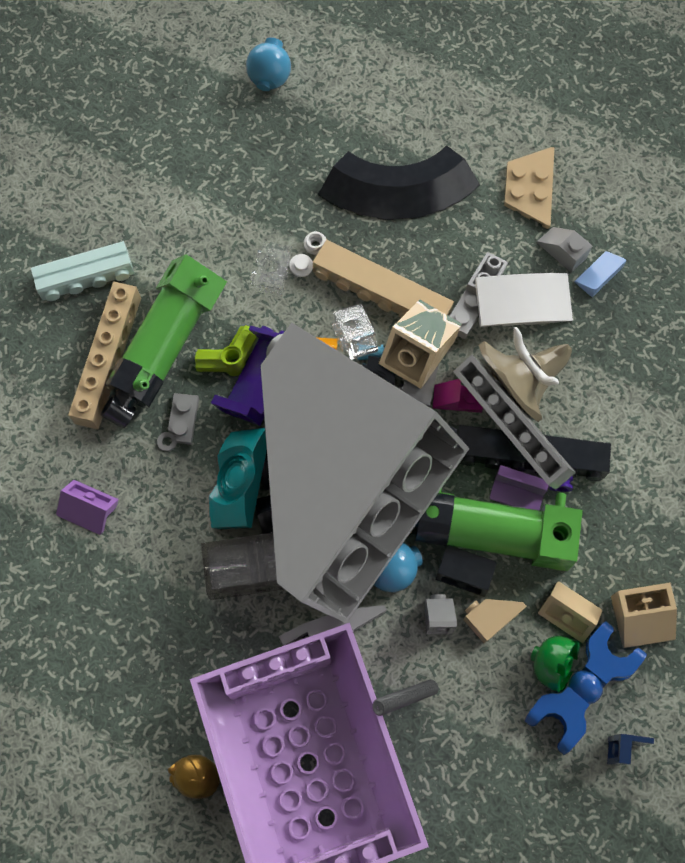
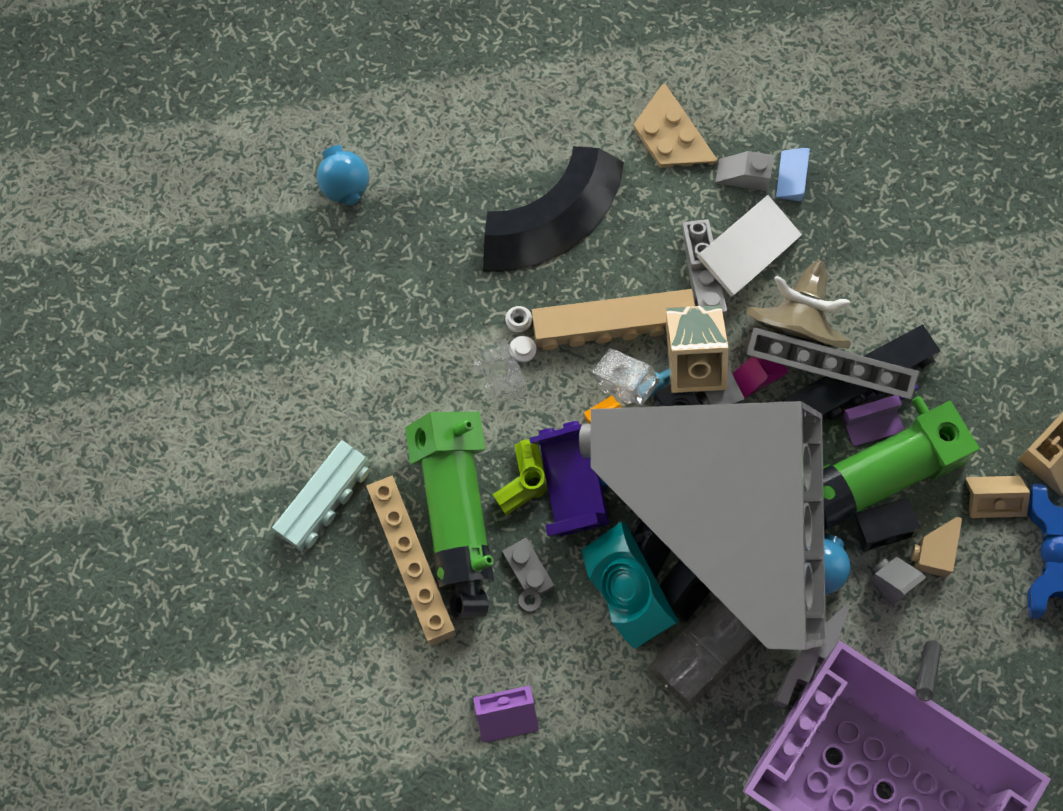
camera: 35 degrees left, 0 degrees up
(554, 661) = (1018, 549): green cylinder -> none

